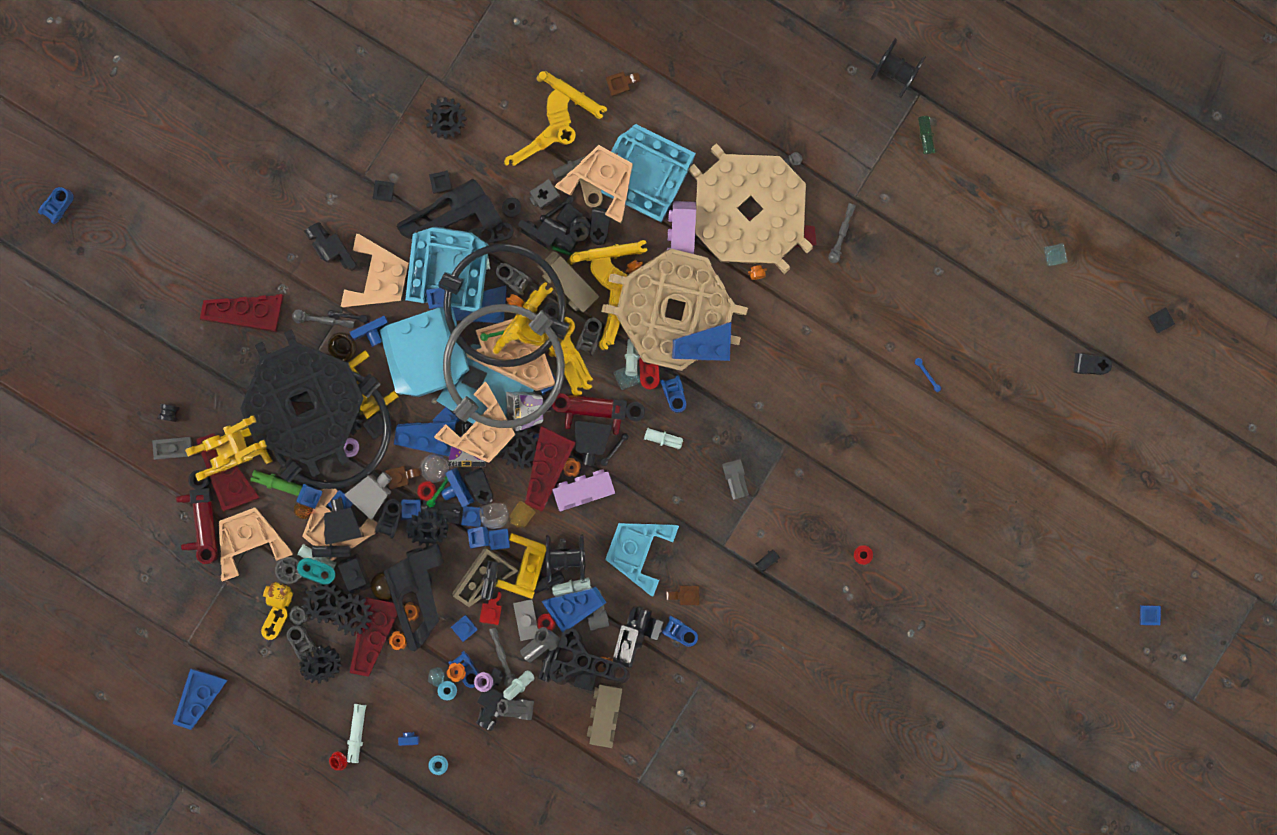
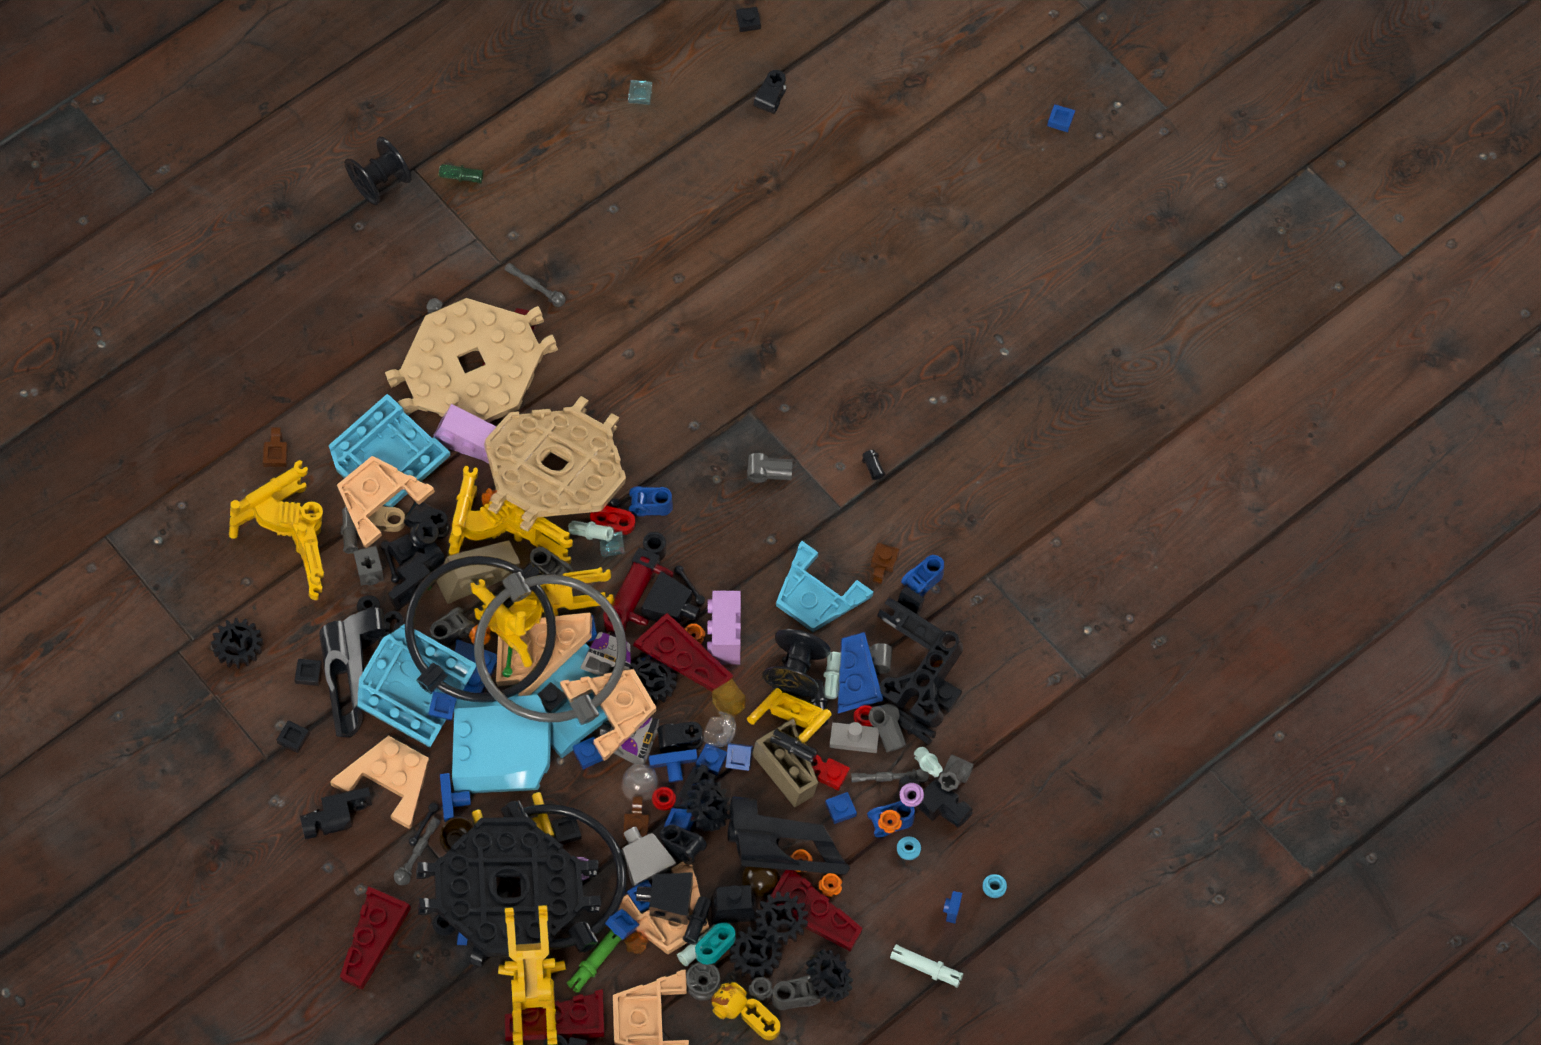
camera: 80 degrees left, 25 degrees down
(338, 761) = (956, 1001): red plate -> none
(421, 436) = (599, 779): blue wing -> none
(430, 502) = (679, 792): green hinge -> none
(436, 676) = (888, 853): clear light blue plate -> none
(499, 539) = (749, 733): blue plate -> none
(604, 715) = (995, 682): dark tan wedge -> none
(663, 438) = (695, 529): light aqua axle -> none
(704, 345) = (606, 445): blue wing -> none
(757, 272) = (545, 379): orange plate -> none
(858, 559) = (900, 374): red plate -> none
(937, 388) = (706, 254): blue hinge -> none

